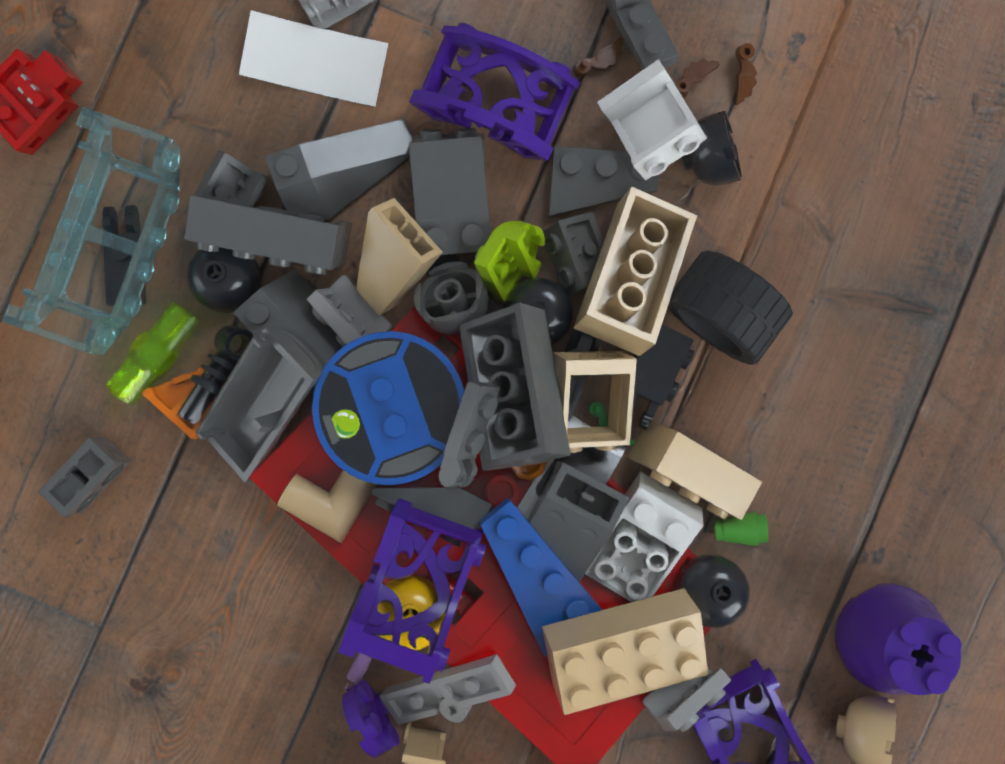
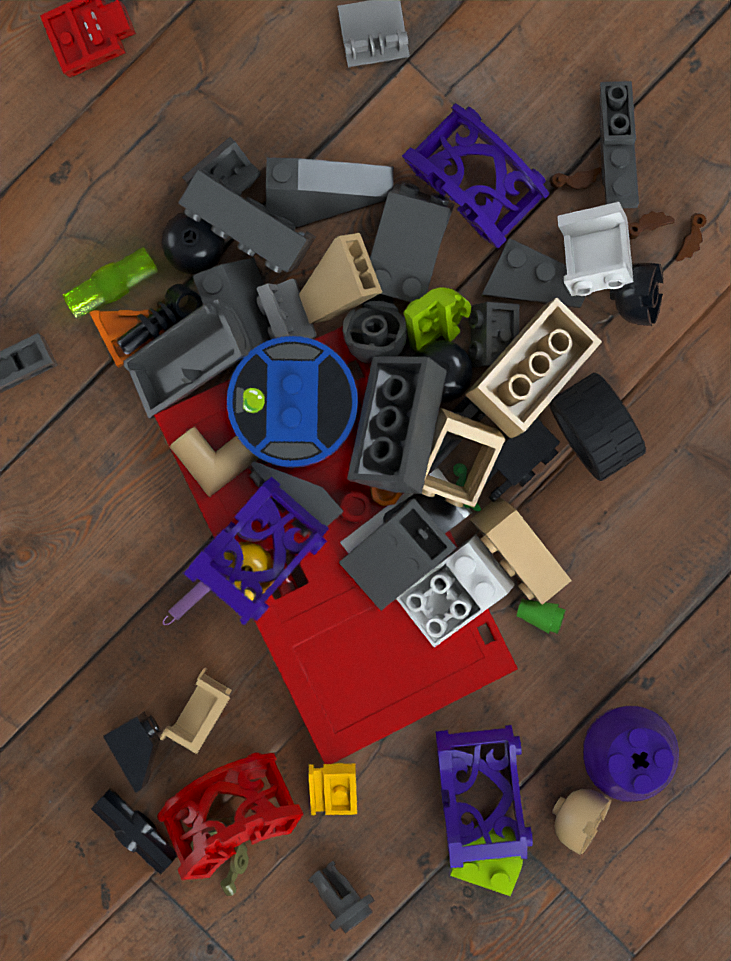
camera: 20 degrees right, 0 degrees up
(77, 228) = (90, 158): clear light blue windscreen -> none
(116, 262) = (114, 195): black hinge -> none
(313, 59) = (336, 88): white sticker -> none
(369, 714) = (178, 647): dark purple plate -> none
(449, 691) = (249, 649): light grey hinge -> none
(467, 434) = (347, 446): dark grey hinge -> none
(534, 571) = (359, 590): blue wing -> none
(625, 650) = (406, 669): tan brick -> none
(677, 704) = (440, 724): light grey bracket -> none
(716, 588) = (482, 655): black cylinder -> none

